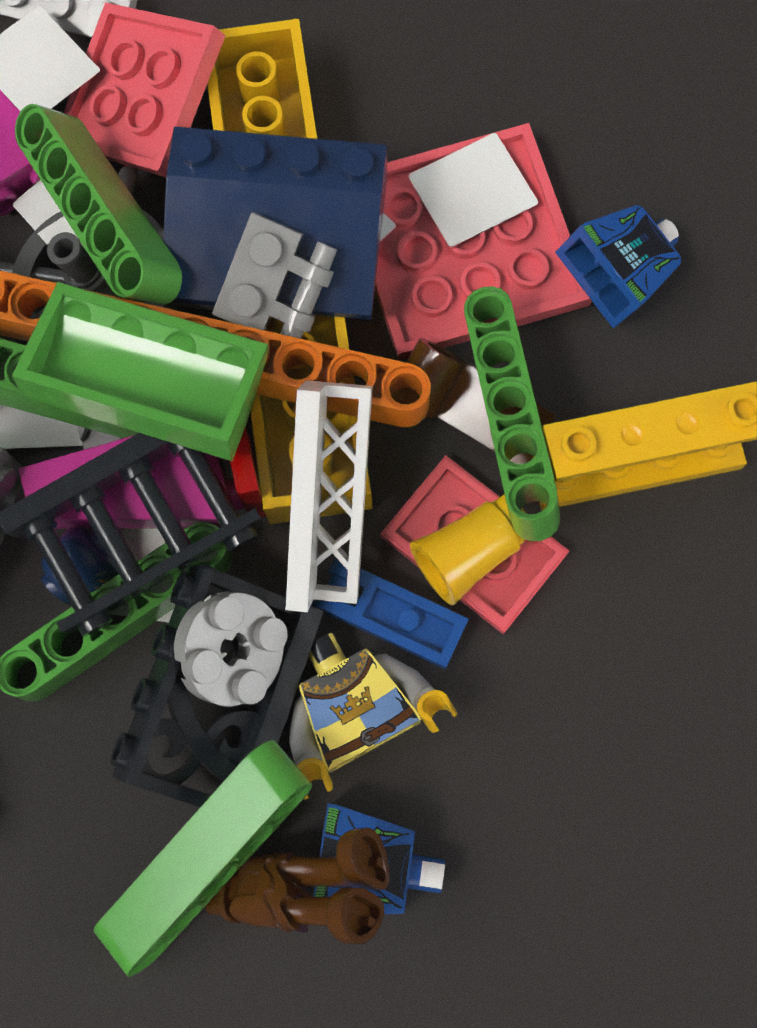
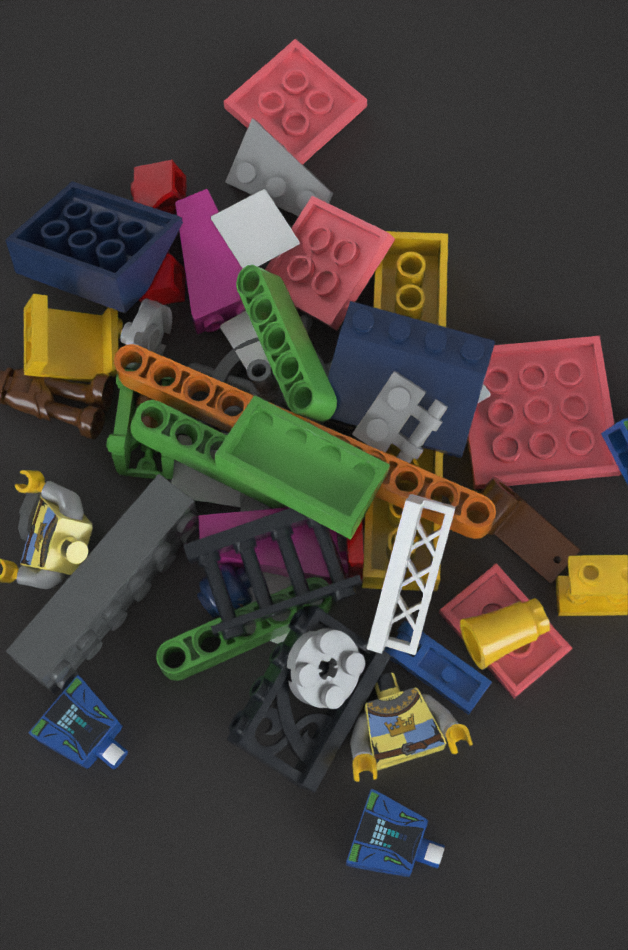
camera: 10 degrees right, 5 degrees down
(202, 857) = (279, 807): bright green beam -> none
(273, 891) = (322, 838): reddish brown piece -> none
(473, 189) = (550, 376): white sticker -> none
(517, 432) = (553, 556): bright green beam -> none

